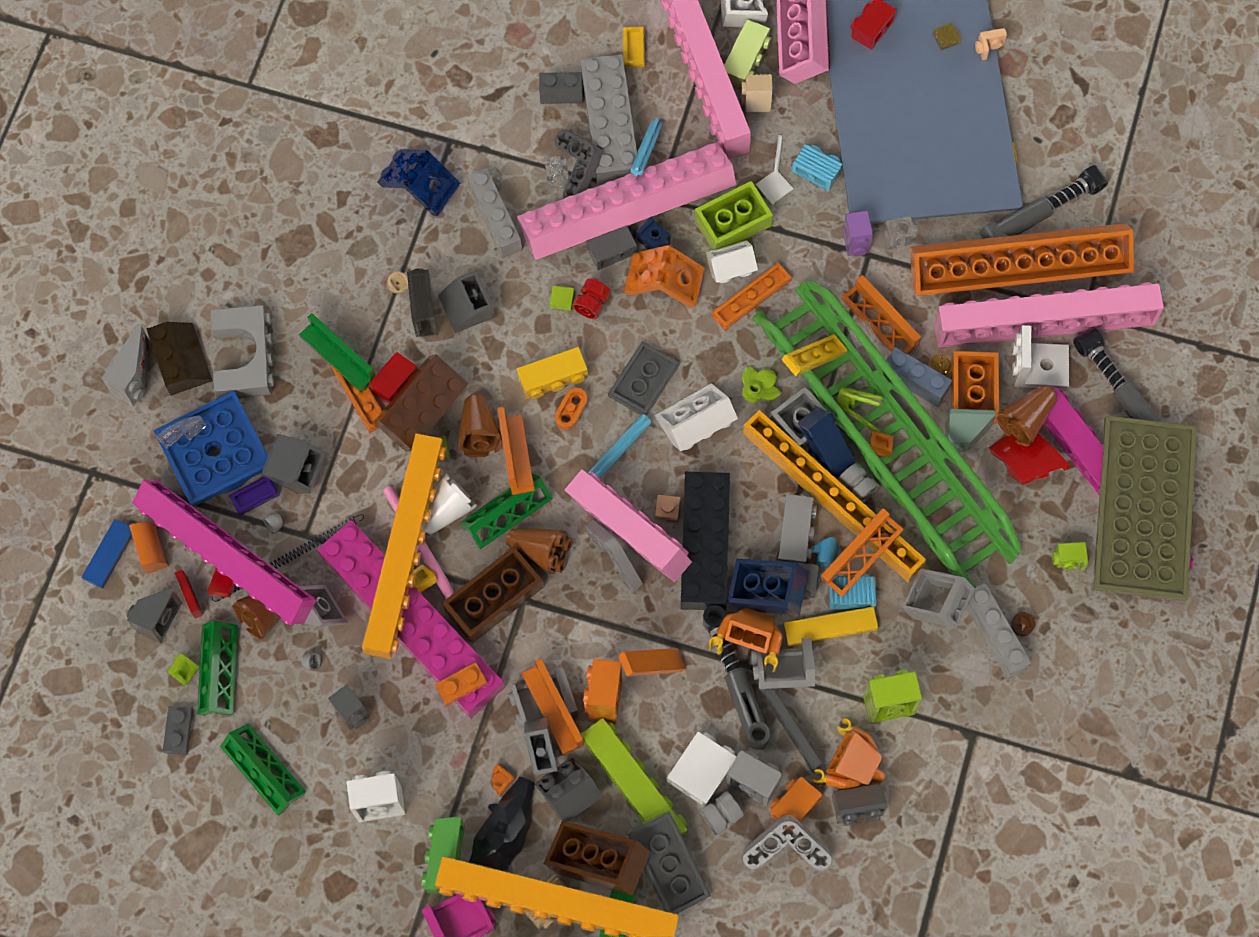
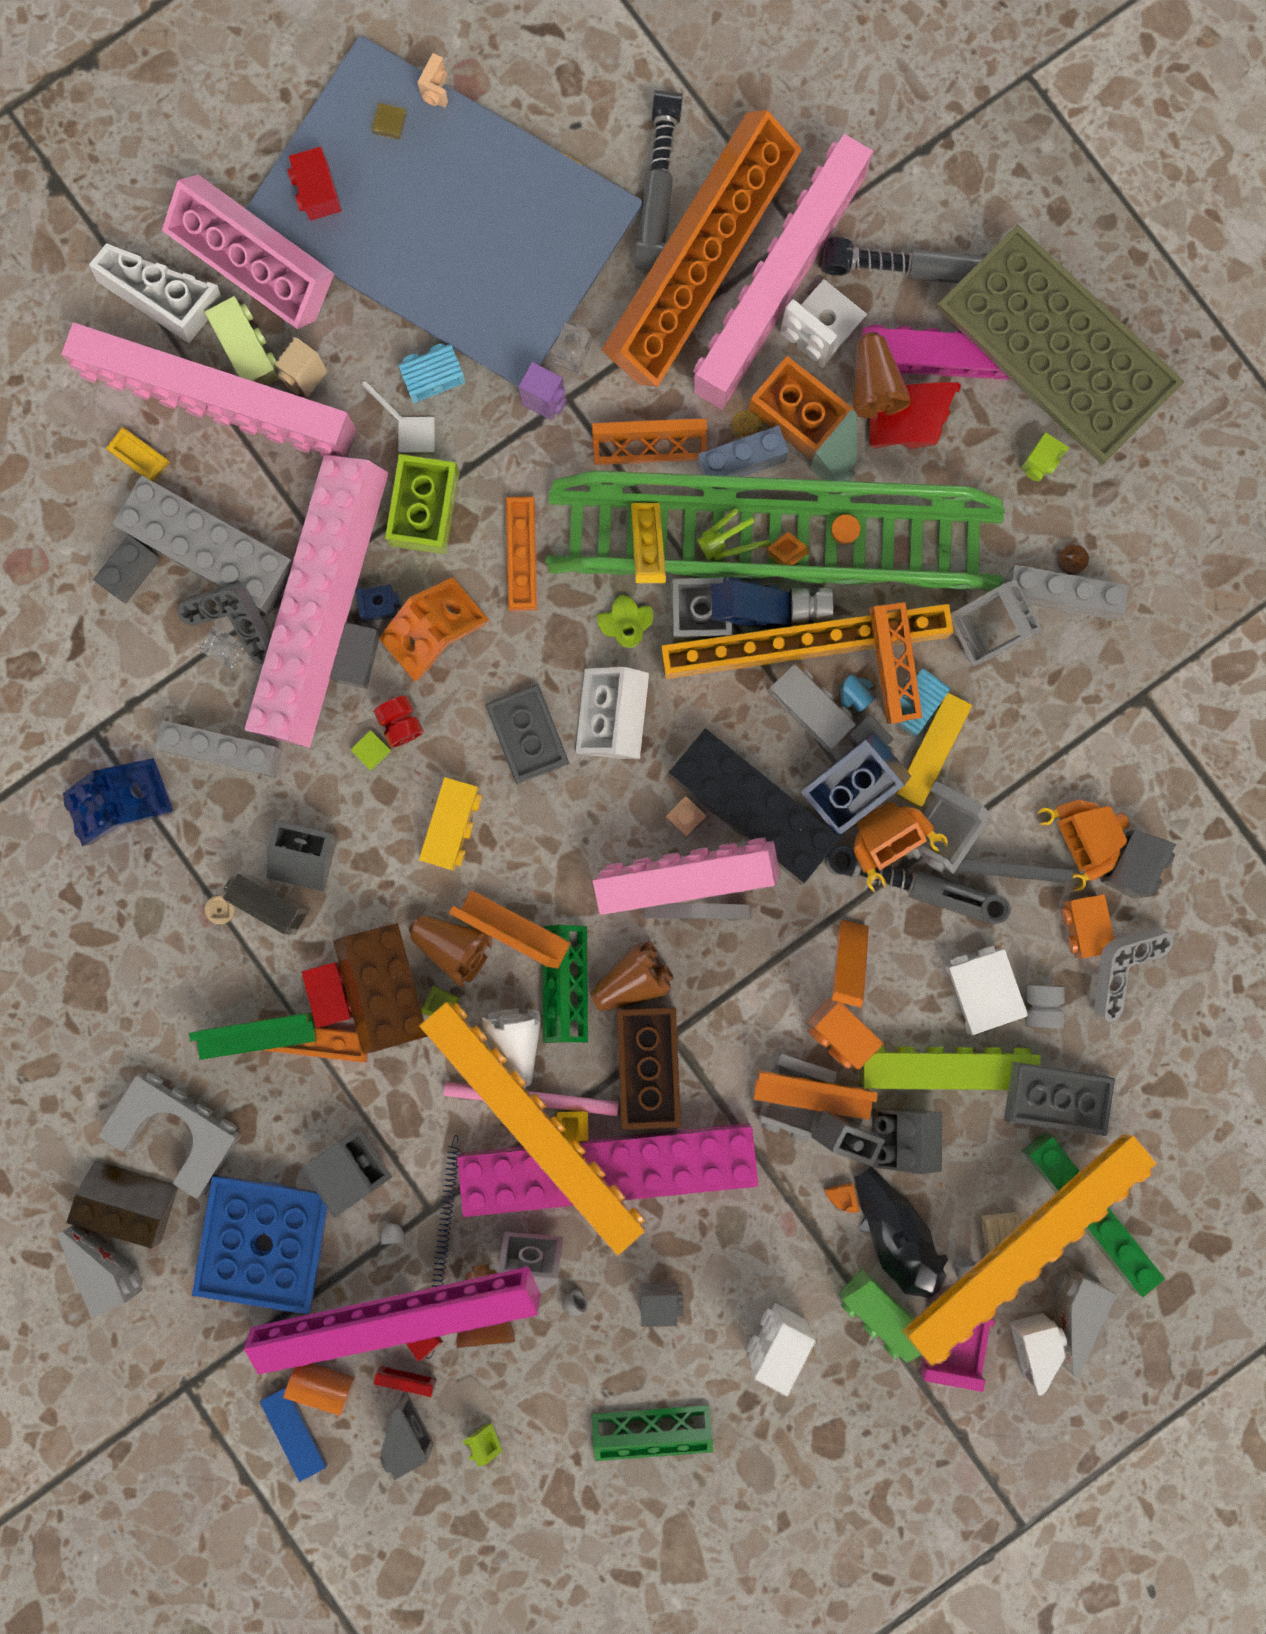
camera: 55 degrees left, 15 degrees up
(177, 730) = (544, 1492): dark grey plate -> none
(188, 427) = (220, 1261): clear slope -> none
(209, 671) = (504, 1415): green fence -> none
(253, 495) = (345, 1236): dark purple tile -> none
(460, 684) = (726, 1175): orange plate -> none
(570, 409) = (504, 834): orange plate -> none
(597, 857) = (1009, 1169): reddish brown brick -> none
(621, 446) = (584, 818): medium azure axle -> none
(646, 147) = (271, 533): medium azure axle -> none
(732, 261) = (471, 544): white brick -> none
(753, 777) = (1039, 949): light grey brick -> none
(866, 327) = (653, 466): clear plate -> none
(892, 696) = (1065, 750): lime brick -> none
(923, 470) = (845, 529): none -> orange tile

